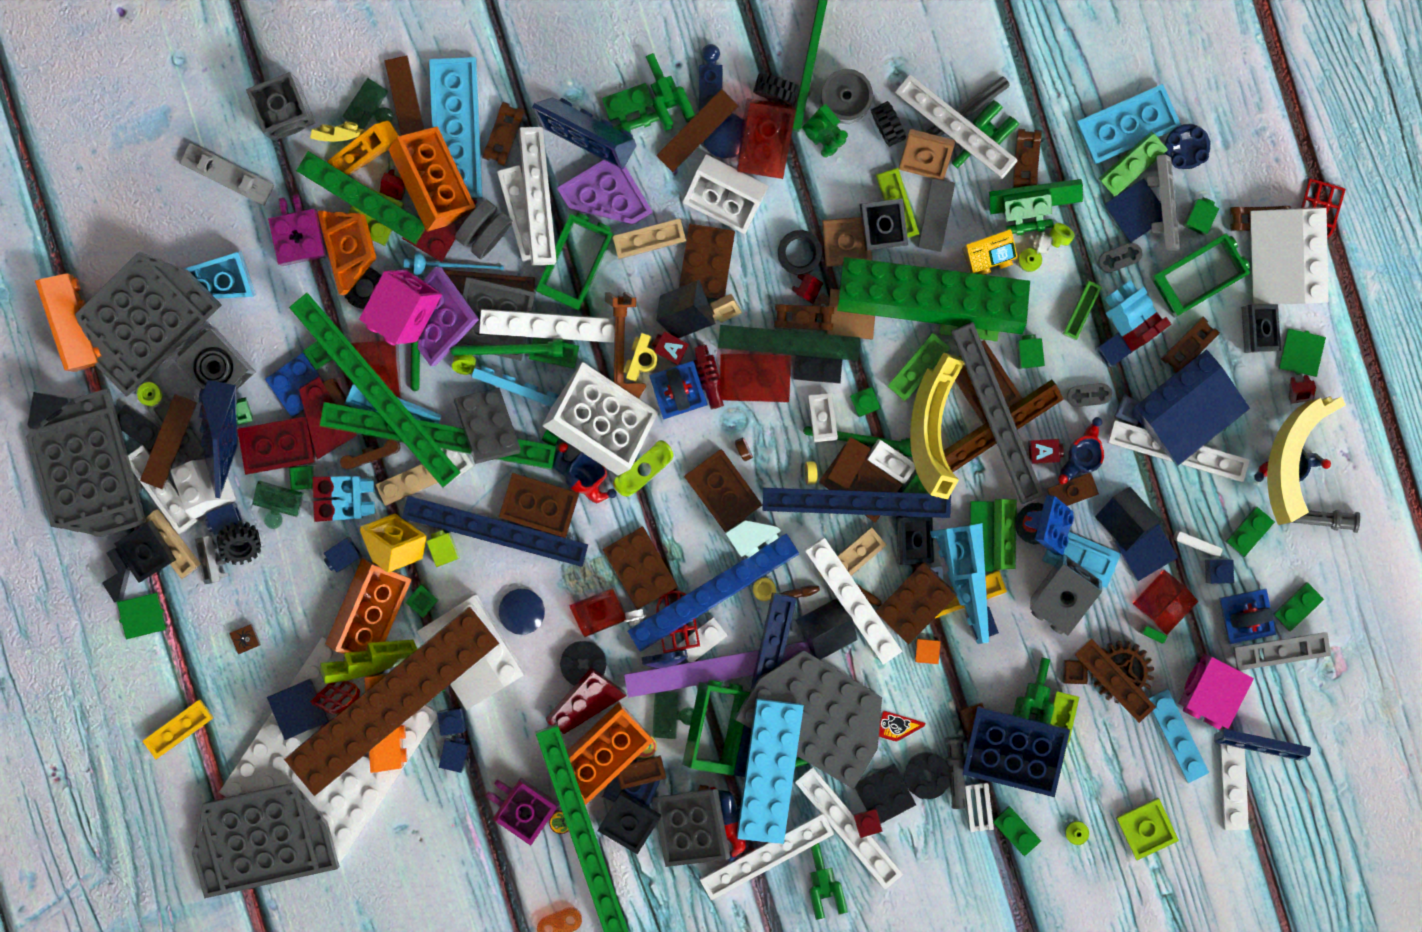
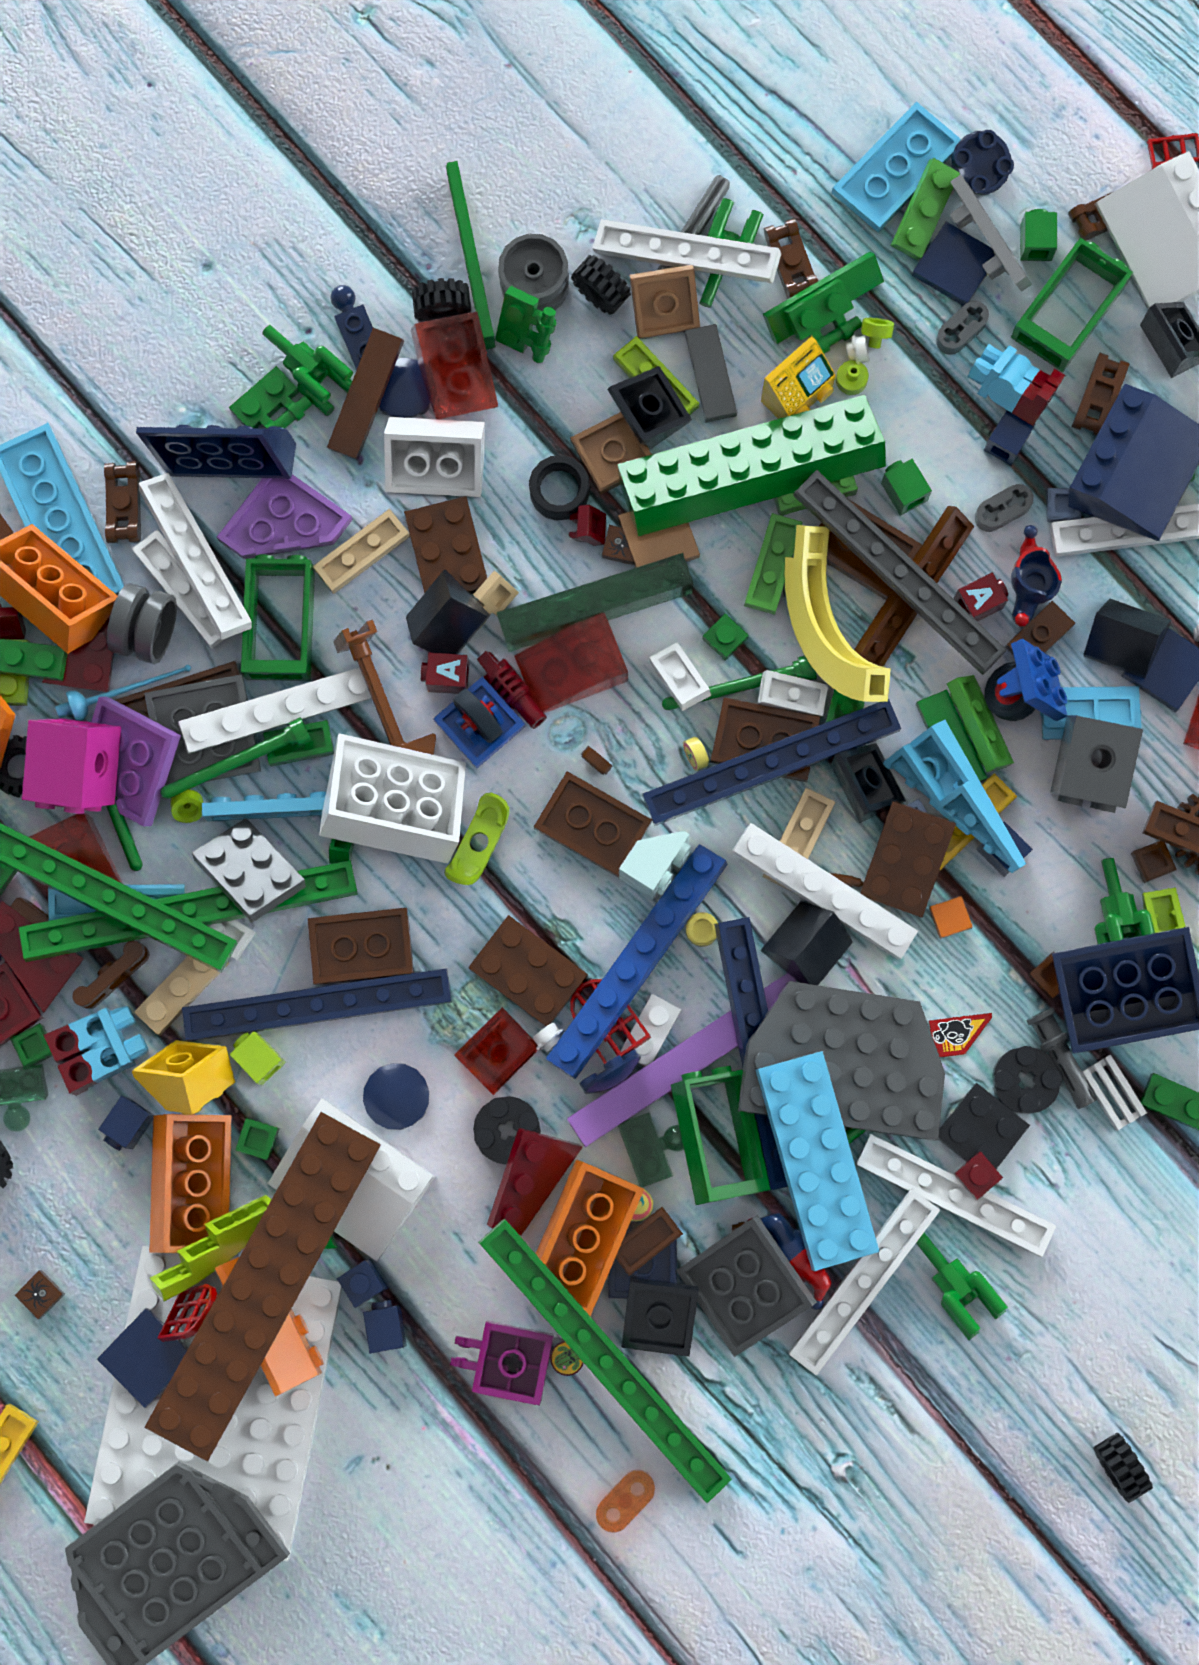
camera: 20 degrees left, 10 degrees down
(583, 475) = (401, 881): dark blue piece -> none
(640, 347) = (409, 687): light yellow plate -> none
(804, 317) = (601, 561): reddish brown plate -> none
(804, 591) = (756, 908): reddish brown piece -> none
(818, 370) = (647, 622): black plate -> none
(849, 463) = (739, 717): reddish brown tile -> none
(1082, 310) = (946, 408): bright green piece -> none

